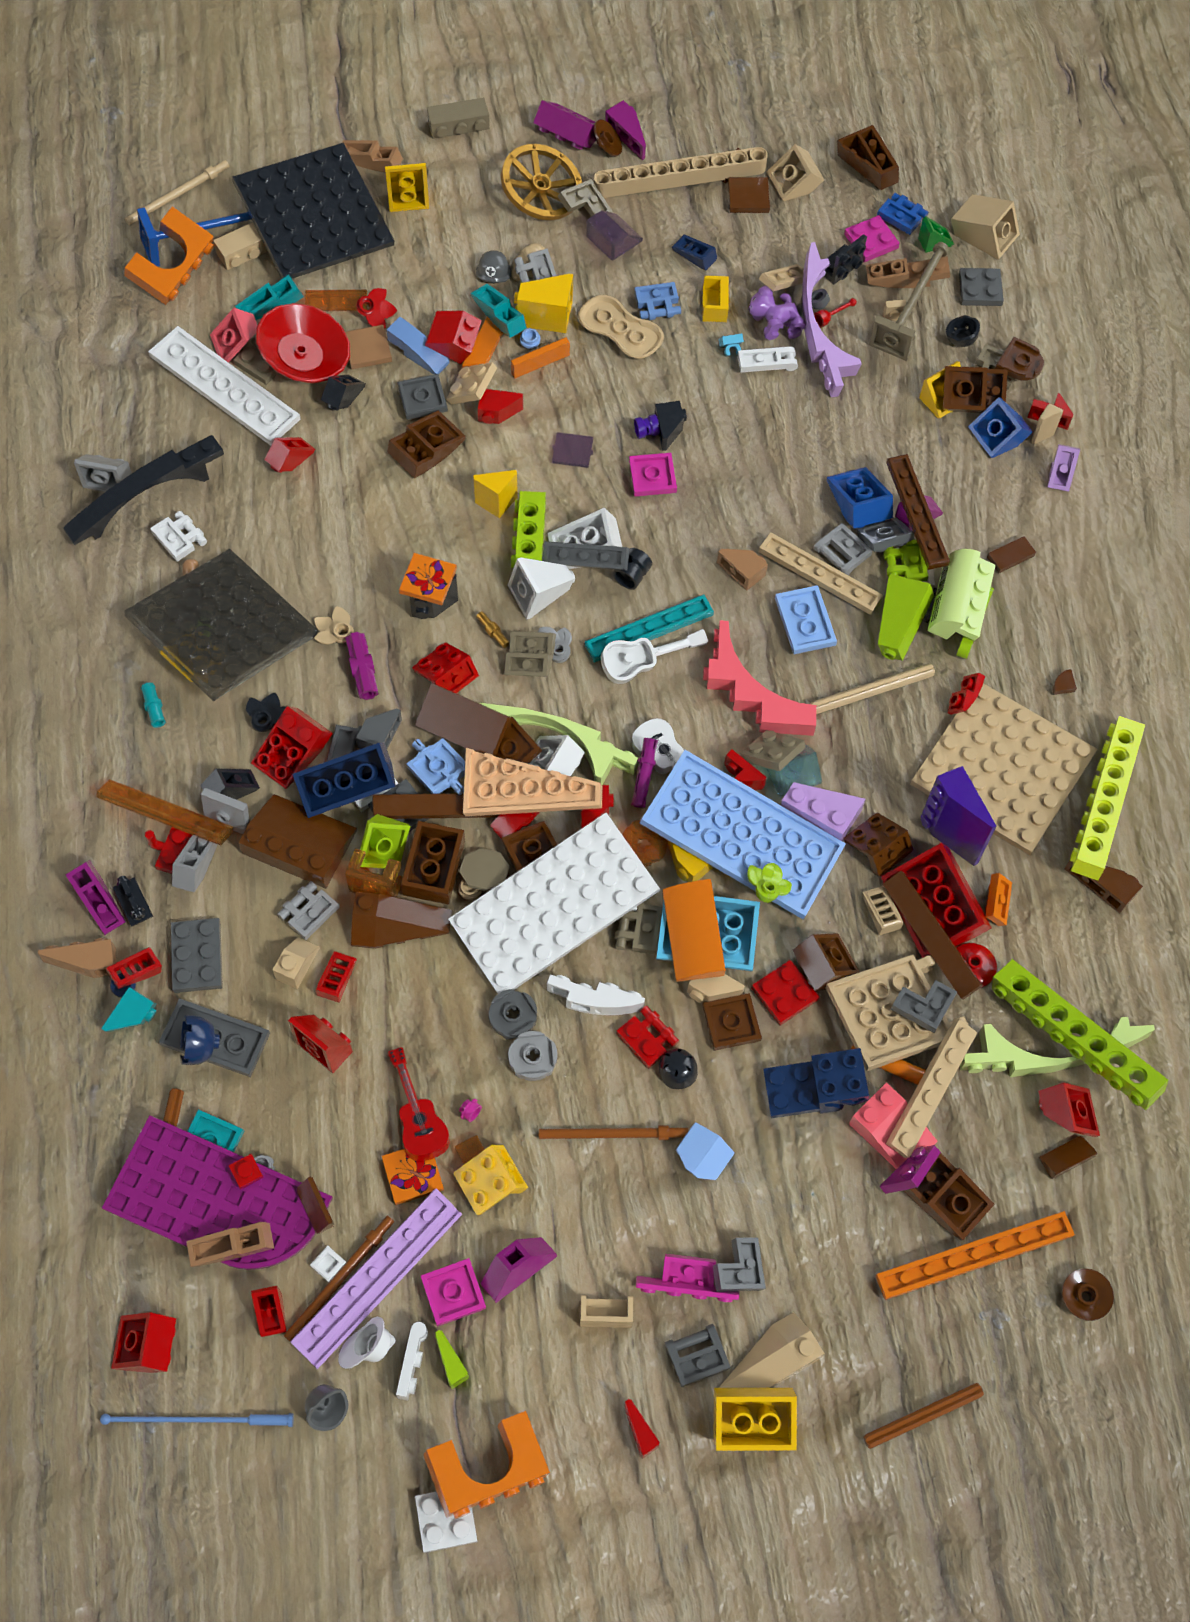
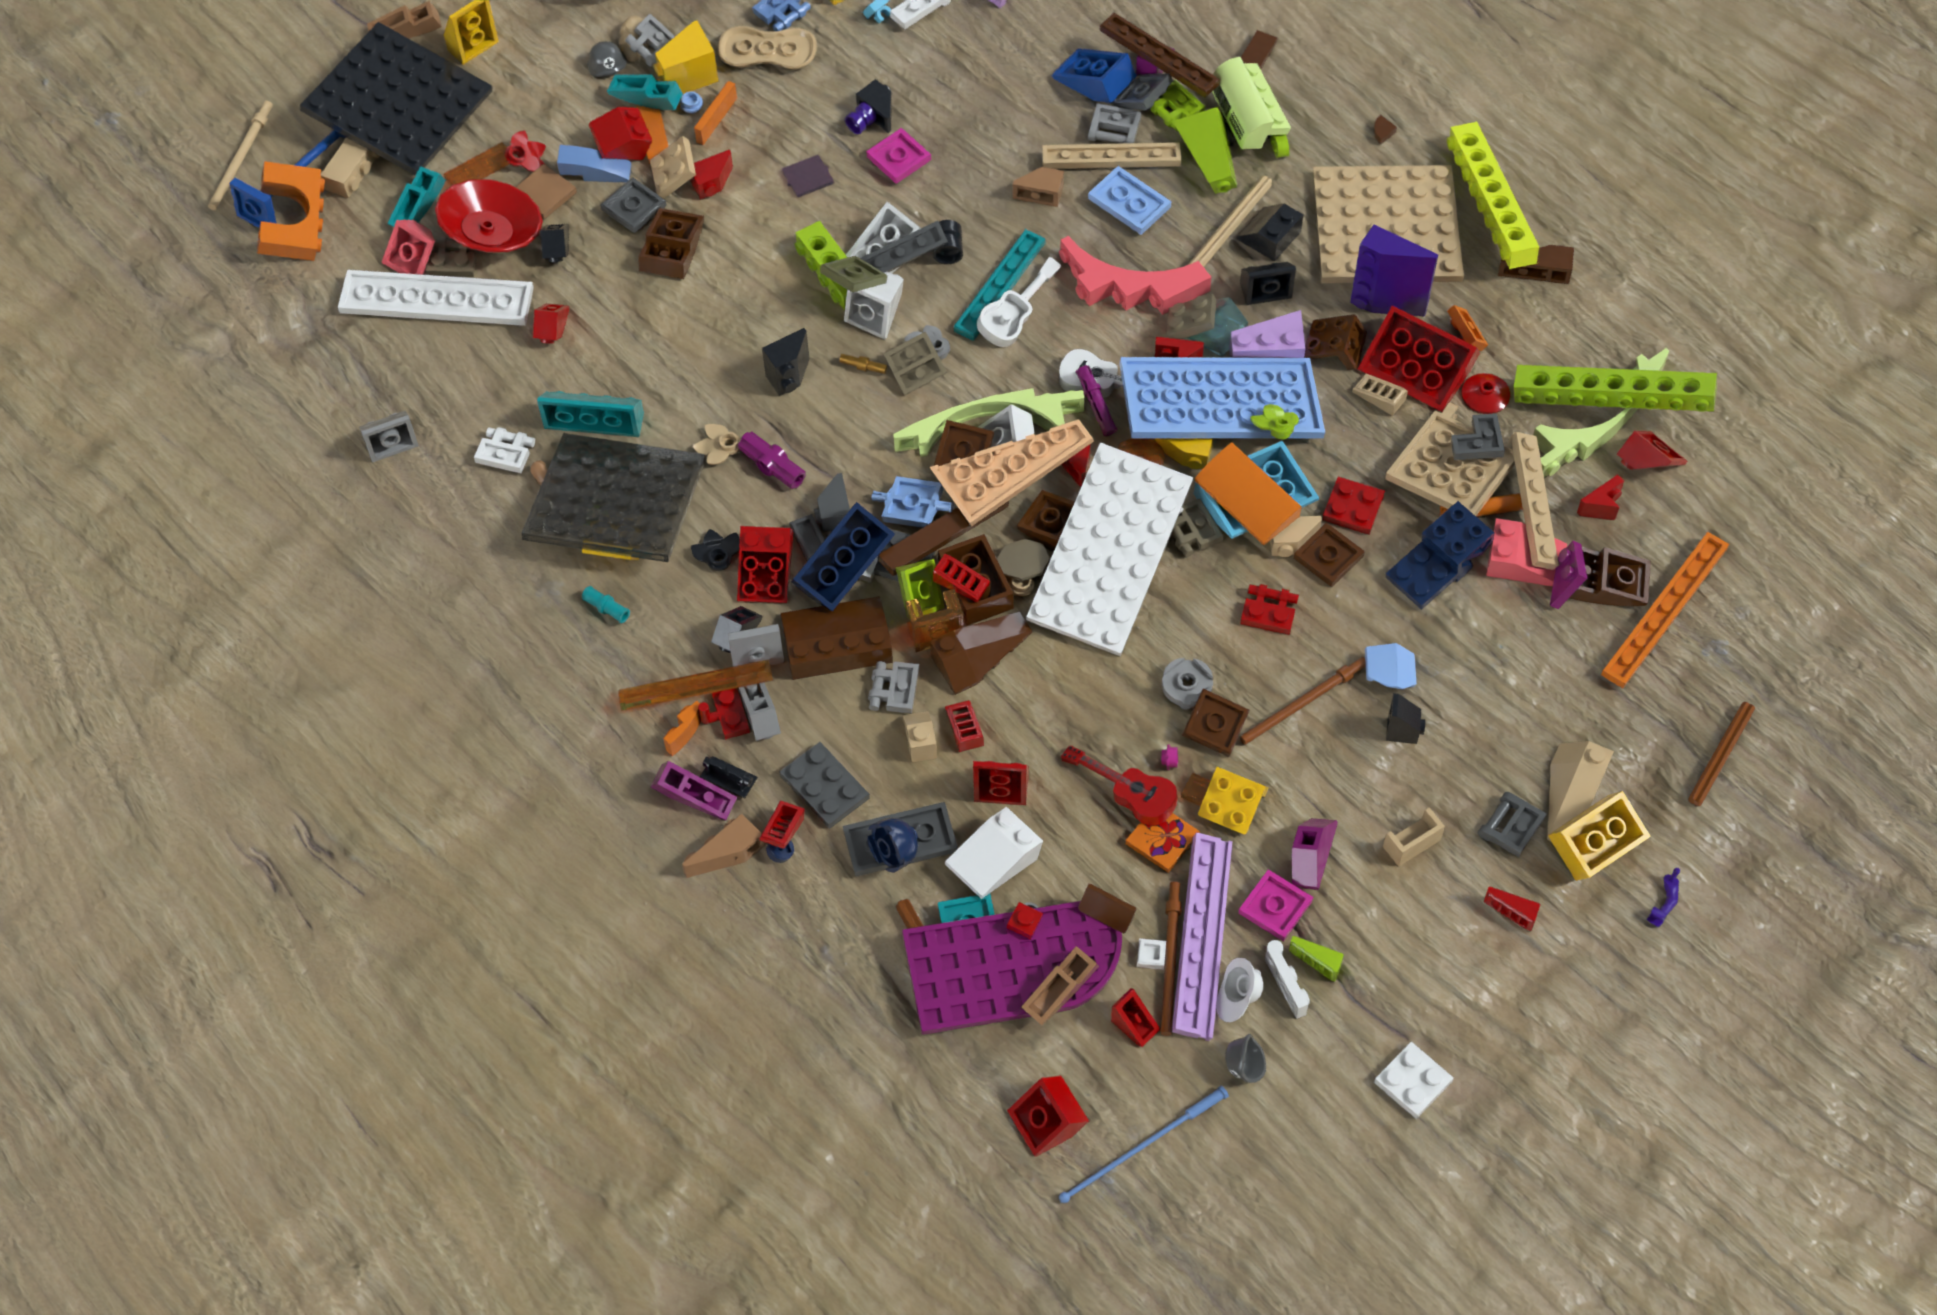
camera: 30 degrees left, 5 degrees down
(123, 845) = (688, 723): none -> orange slope
(130, 1011) = (808, 862): teal slope -> none
(170, 466) = (455, 389): black slope -> none
(259, 544) = (591, 413): none -> teal slope
(269, 1099) = (995, 853): none -> white slope
(403, 845) = (955, 566): none -> red slope
(428, 579) = (784, 345): orange tile -> none
(447, 668) = (852, 416): red bracket -> none
(460, 1492) = (1413, 1044): orange arch -> none
(462, 720) = (904, 449): reddish brown tile -> none
(496, 491) = (772, 245): yellow slope -> none
(510, 823) = (1014, 509): red slope -> none
(514, 1000) = (1142, 673): dark grey plate -> none
(526, 1105) = (1215, 722): none -> reddish brown tile
(530, 552) = (853, 273): none -> olive tile
(603, 1001) = (1211, 602): white slope -> none
(675, 1207) = (1404, 721): none -> black slope
(677, 1062) = (1314, 610): black helmet -> none
(686, 1276) = (1455, 768): dark pink bracket -> none
(745, 1272) = (1497, 735): plate -> none
(787, 1504) = (1671, 886): none -> dark purple piece
(824, 960) = (1366, 460): reddish brown slope -> none
(860, 757) = (1267, 282): none -> black slope
(901, 715) = (1272, 230): none -> black slope
(932, 935) = (1437, 385): reddish brown tile -> none
(970, 689) = (1313, 182): red slope -> none
(990, 1123) = (1602, 500): none -> red slope
(1067, 1156) = (1676, 491): reddish brown slope -> none
(1095, 1286) = (1775, 574): reddish brown dish -> none

